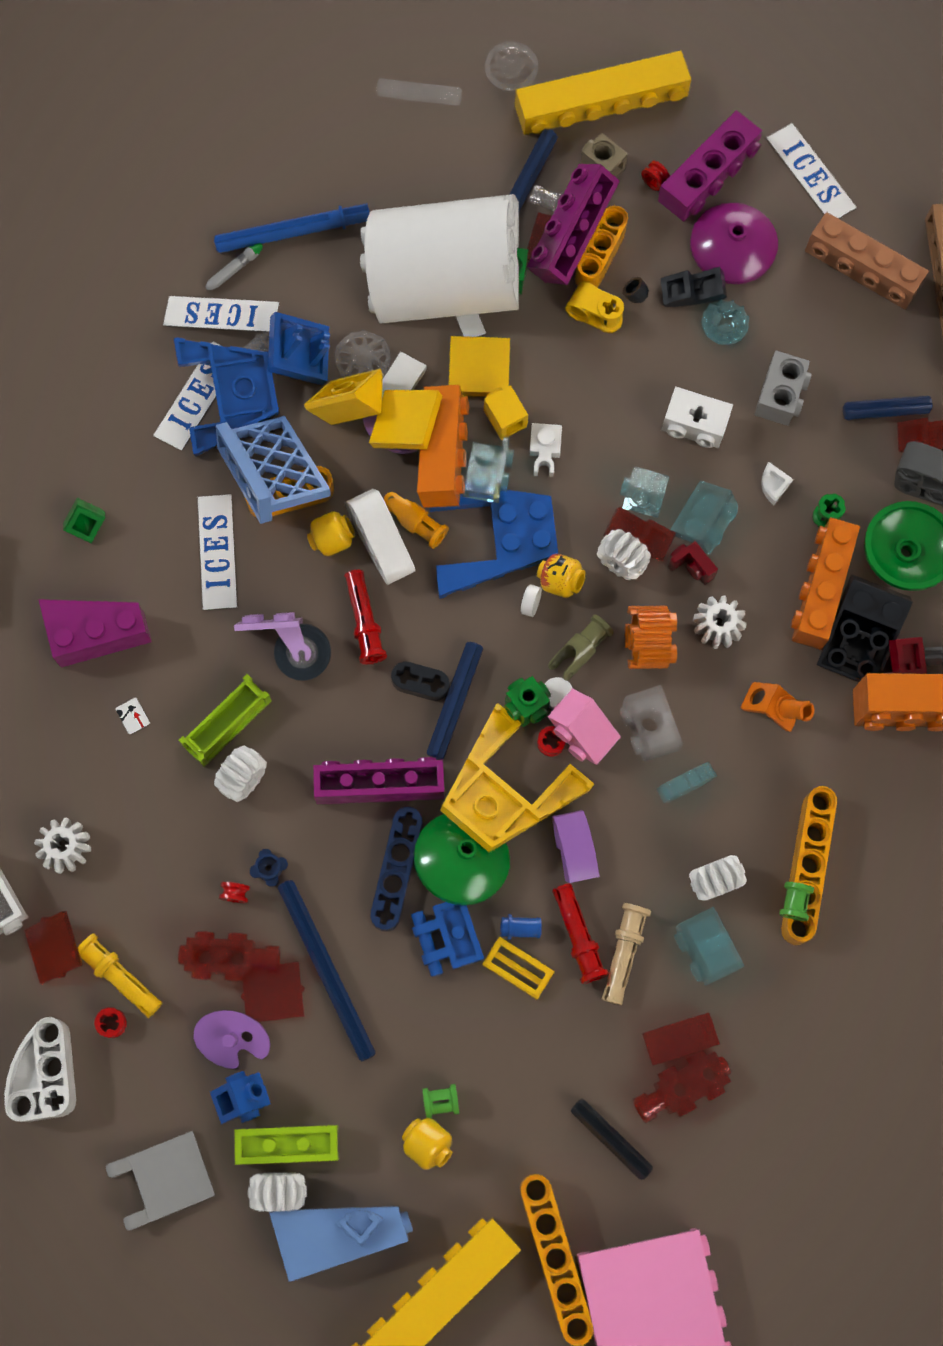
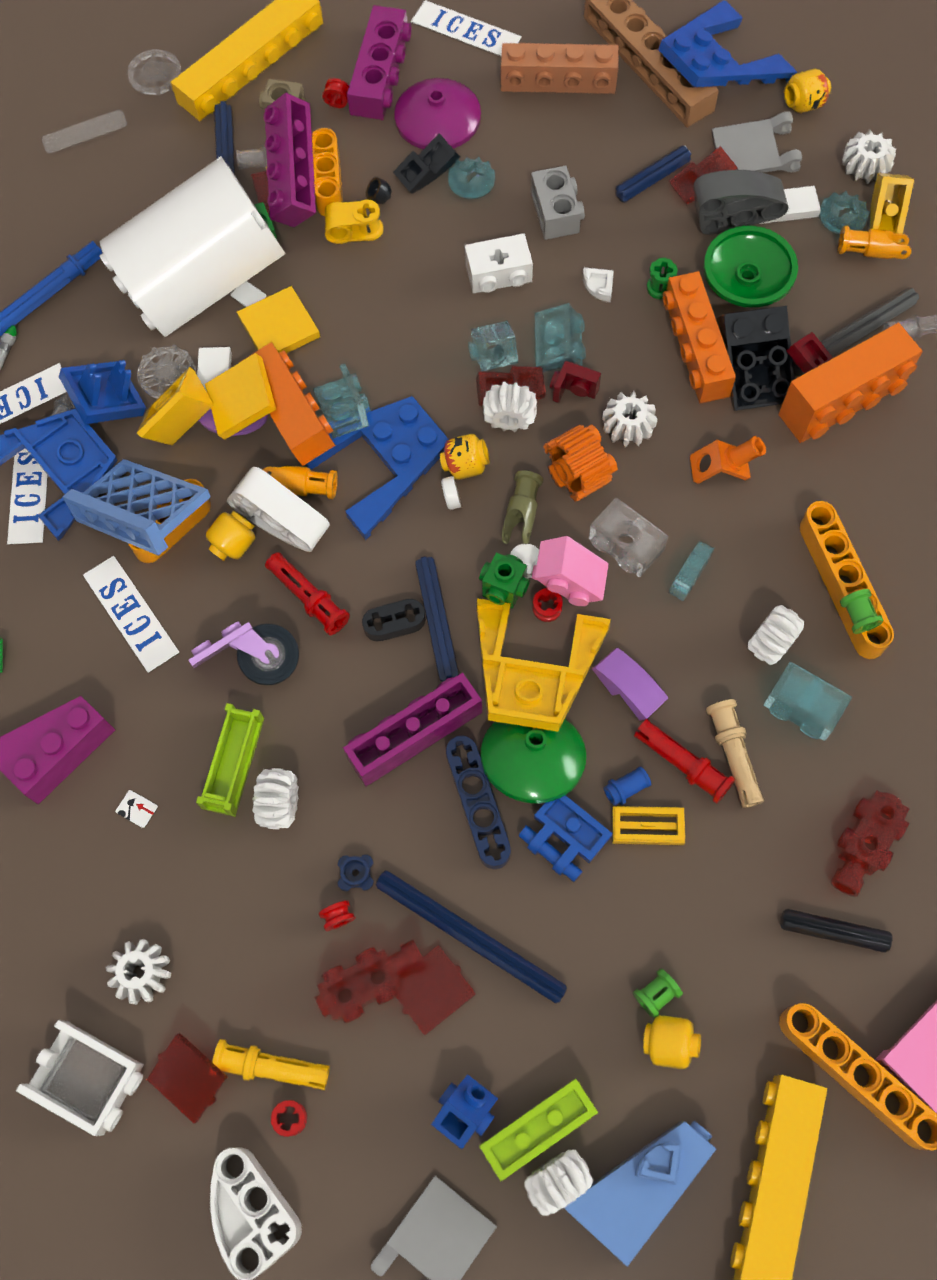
camera: 25 degrees left, 5 degrees down
(220, 1037) = (408, 1066): medium lavender piece -> none
(505, 412) = (327, 346): yellow brick -> none
(546, 444) = (379, 357): white plate -> none
(681, 1038) = (836, 799): clear red slope -> none

